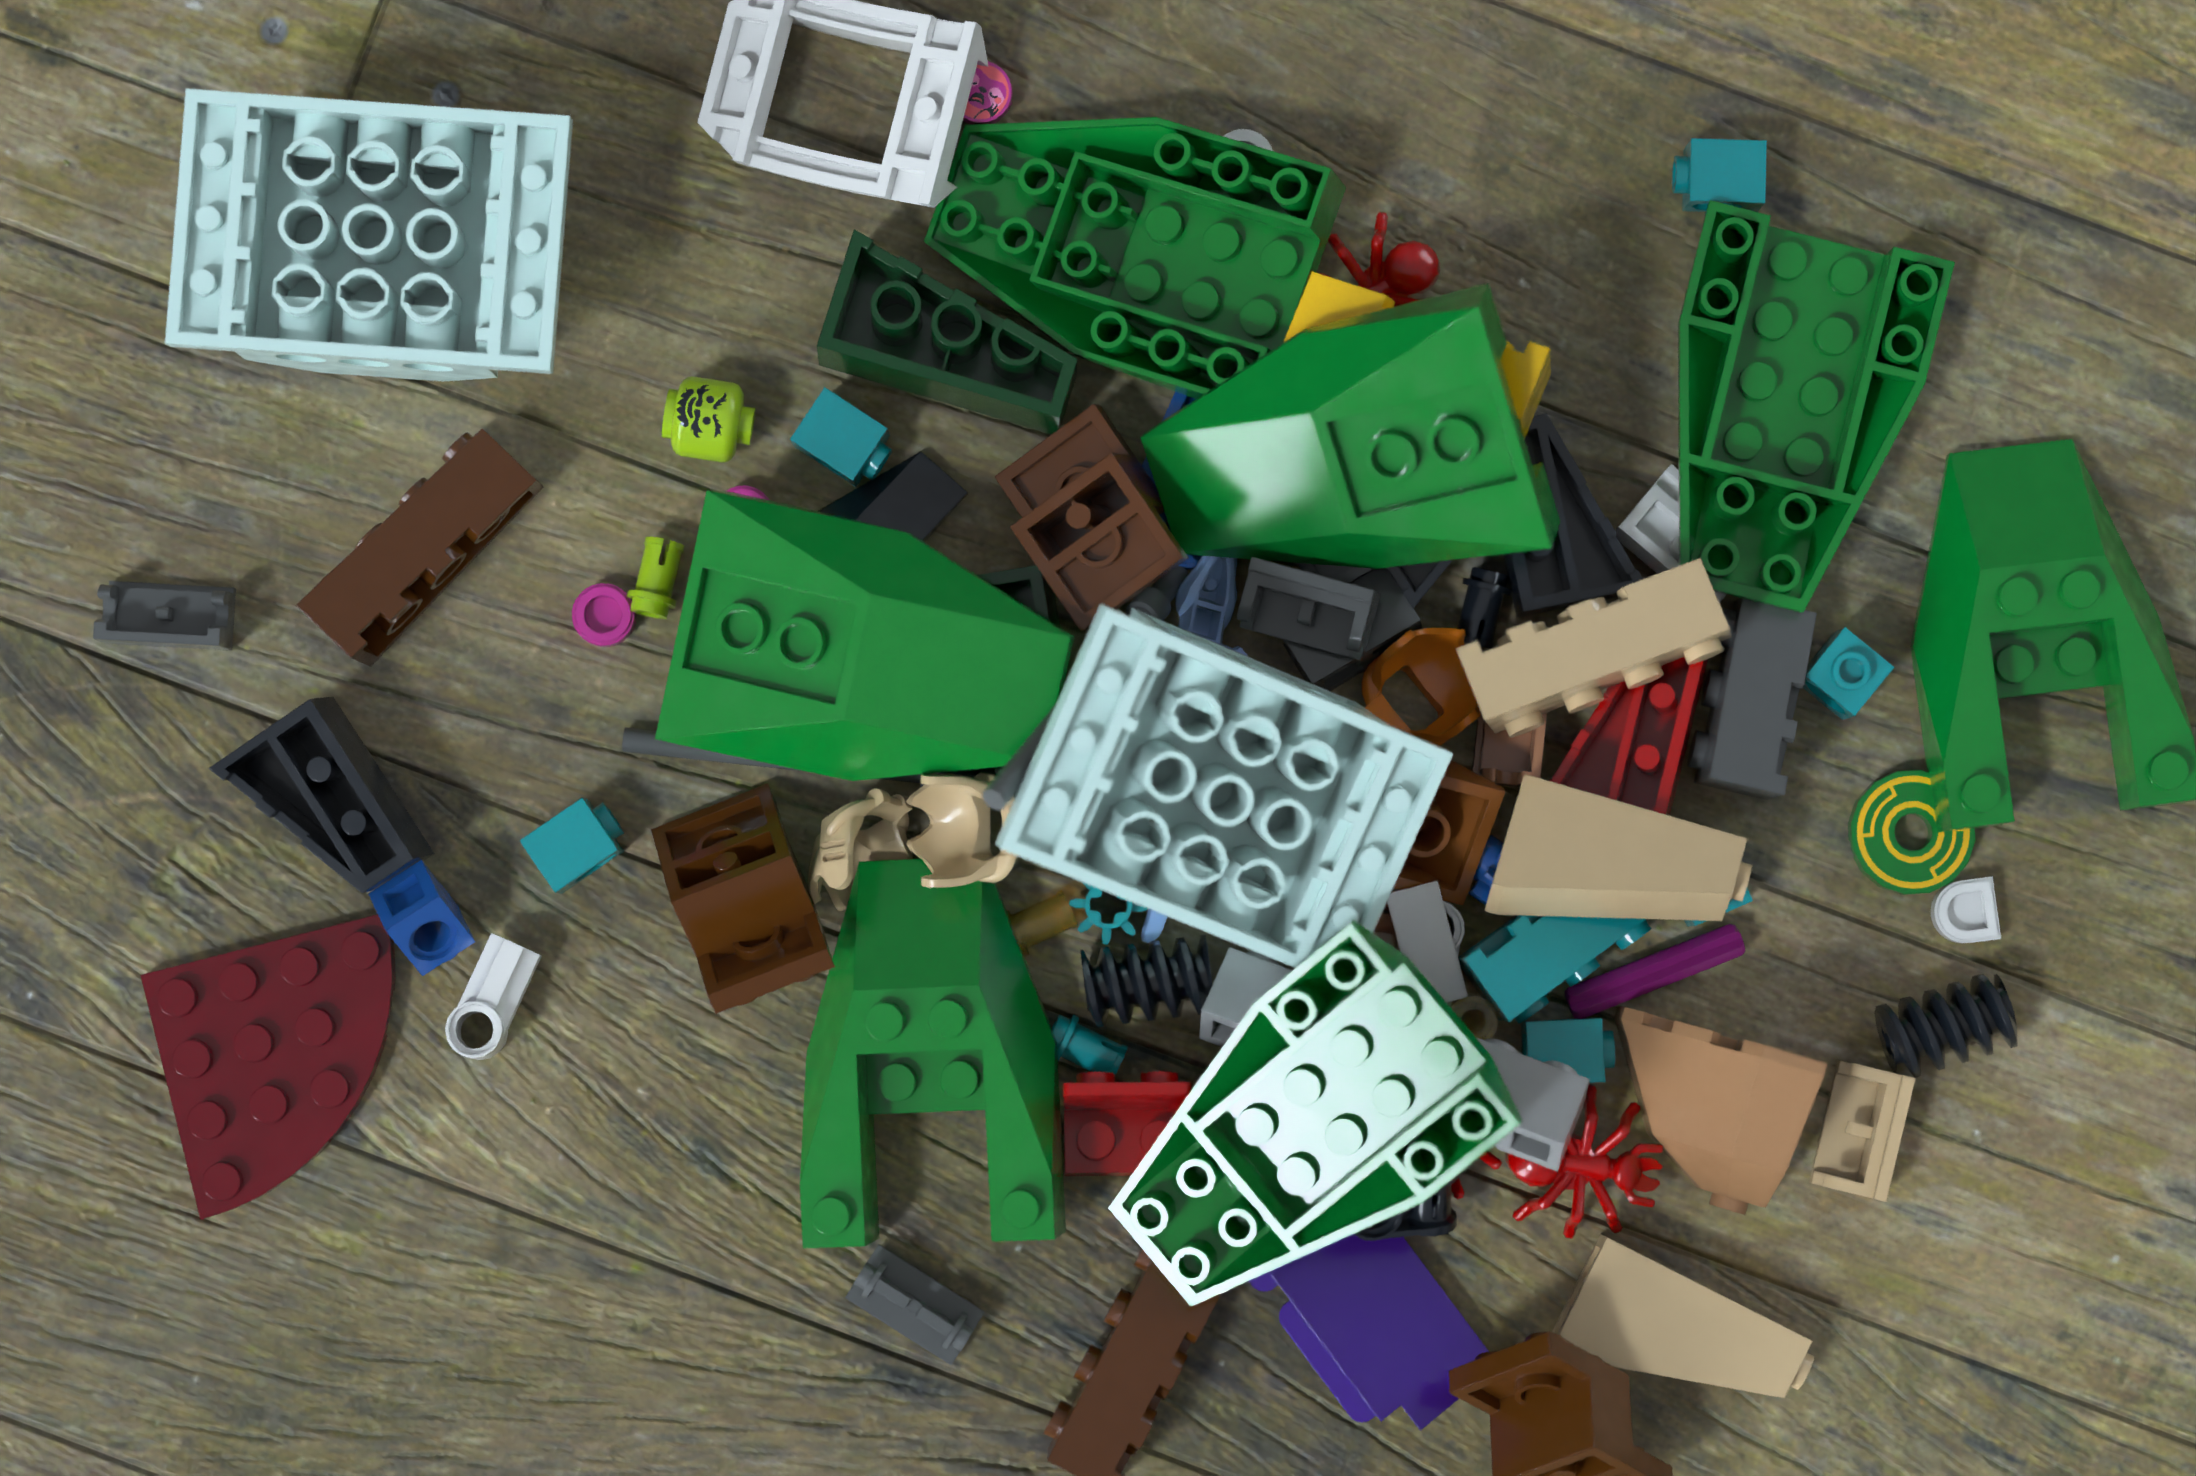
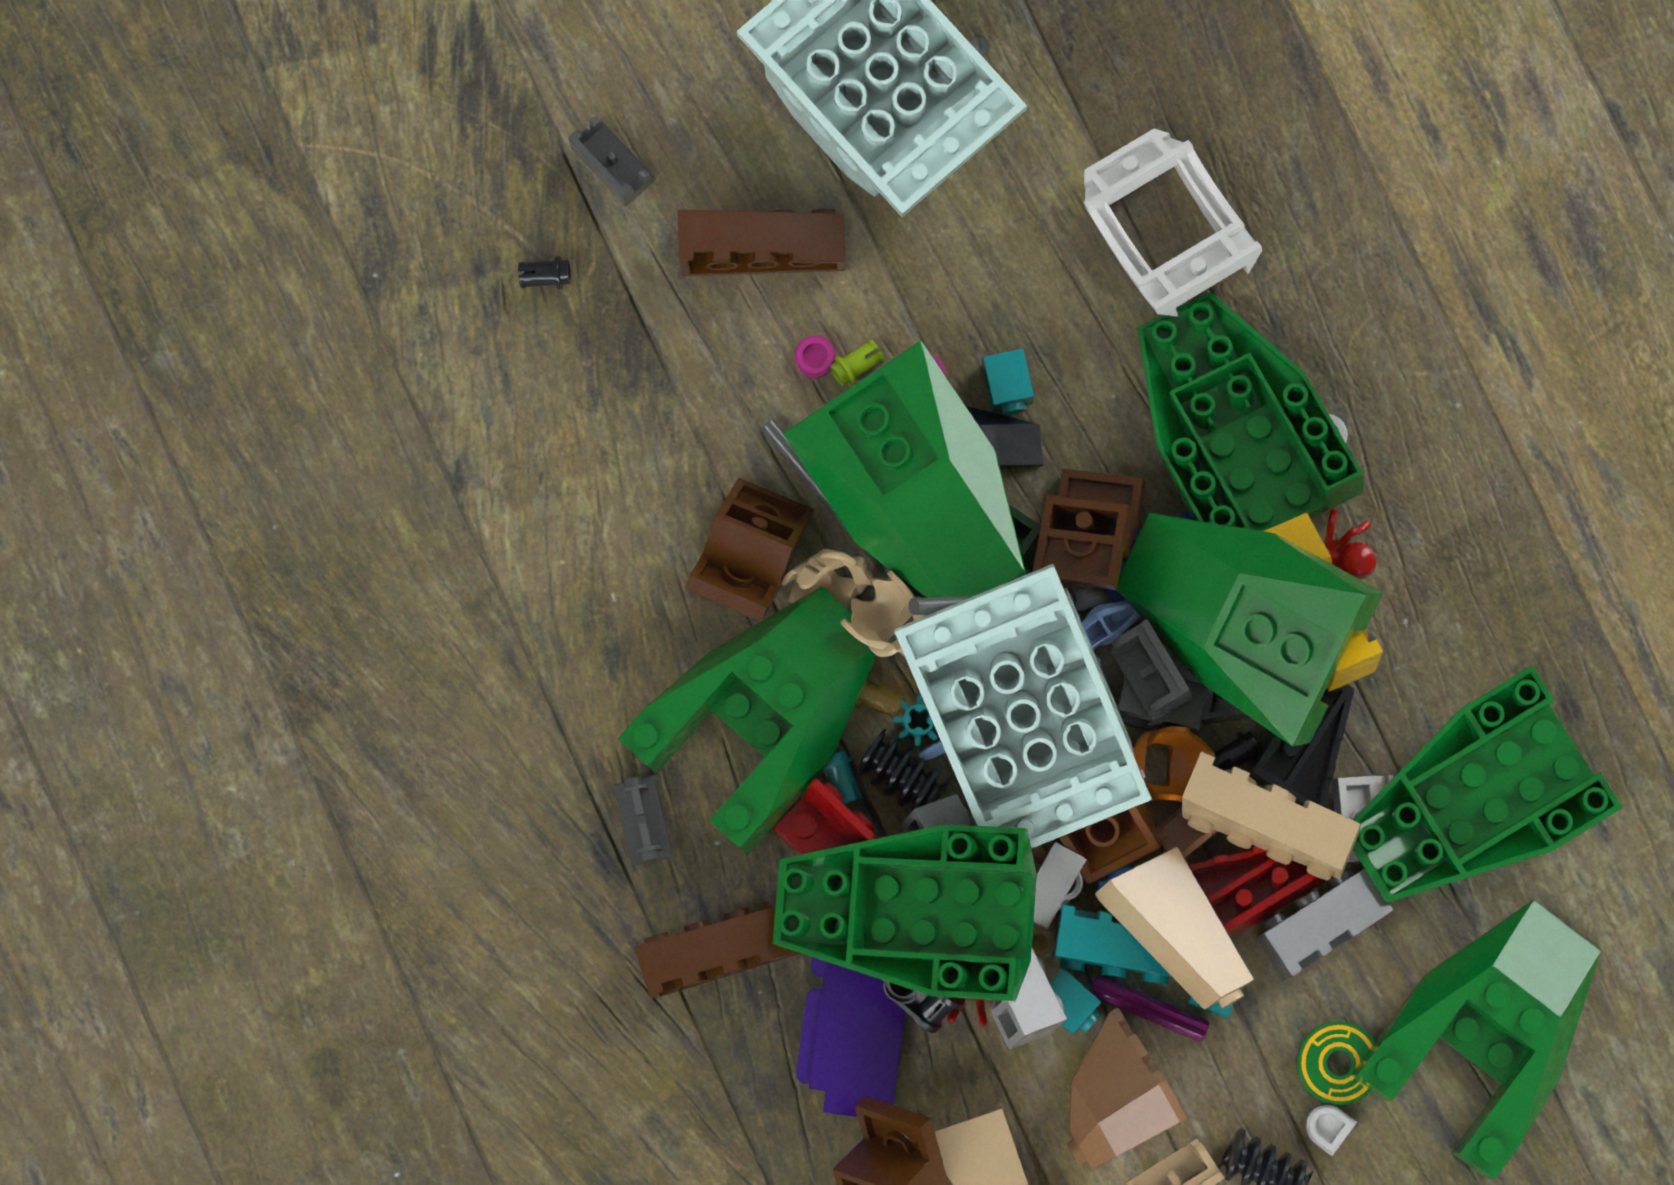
camera: 45 degrees right, 5 degrees down
(218, 811) = (545, 273): none -> black pin
(270, 1052) = (460, 409): dark red plate -> none
(329, 793) = (606, 314): black wedge -> none
(421, 918) = (593, 400): blue brick -> none
(495, 991) = (591, 481): white piece -> none
(574, 844) = (696, 449): teal brick -> none
(707, 419) = (953, 311): lime head -> none
(938, 343) = (1097, 380): dark green wedge -> none
(989, 95) = (1234, 288): tile -> none
(1585, 1165) = (1023, 1062): red animal -> none
(1721, 172) = (1552, 658): teal brick -> none
(1845, 673) = (1379, 953): teal brick -> none

